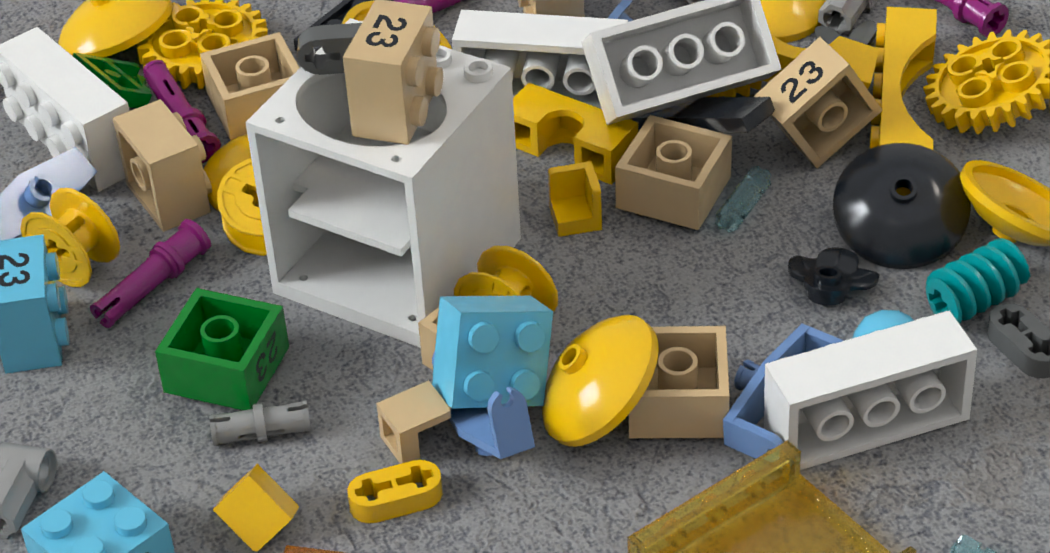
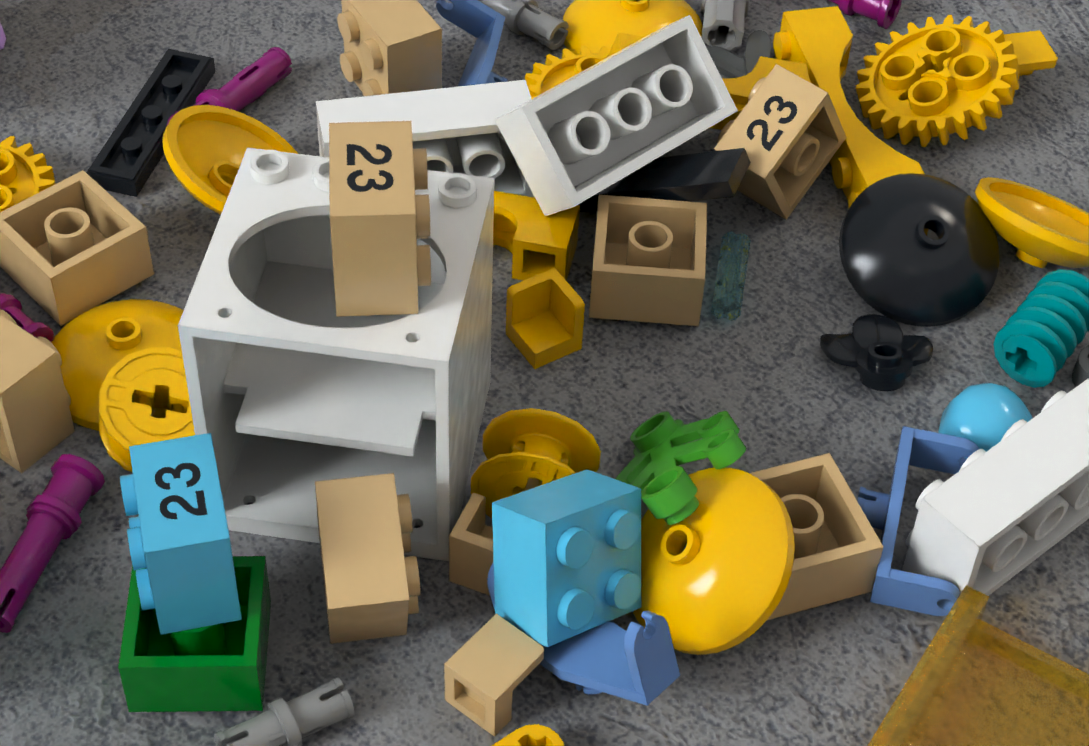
camera: 25 degrees left, 5 degrees up
(220, 271) = (180, 534): none -> medium azure brick
(334, 42) = (270, 194): dark grey beam -> none
(349, 323) = (363, 560): none -> tan brick
(617, 300) = (661, 450): none -> bright green plant

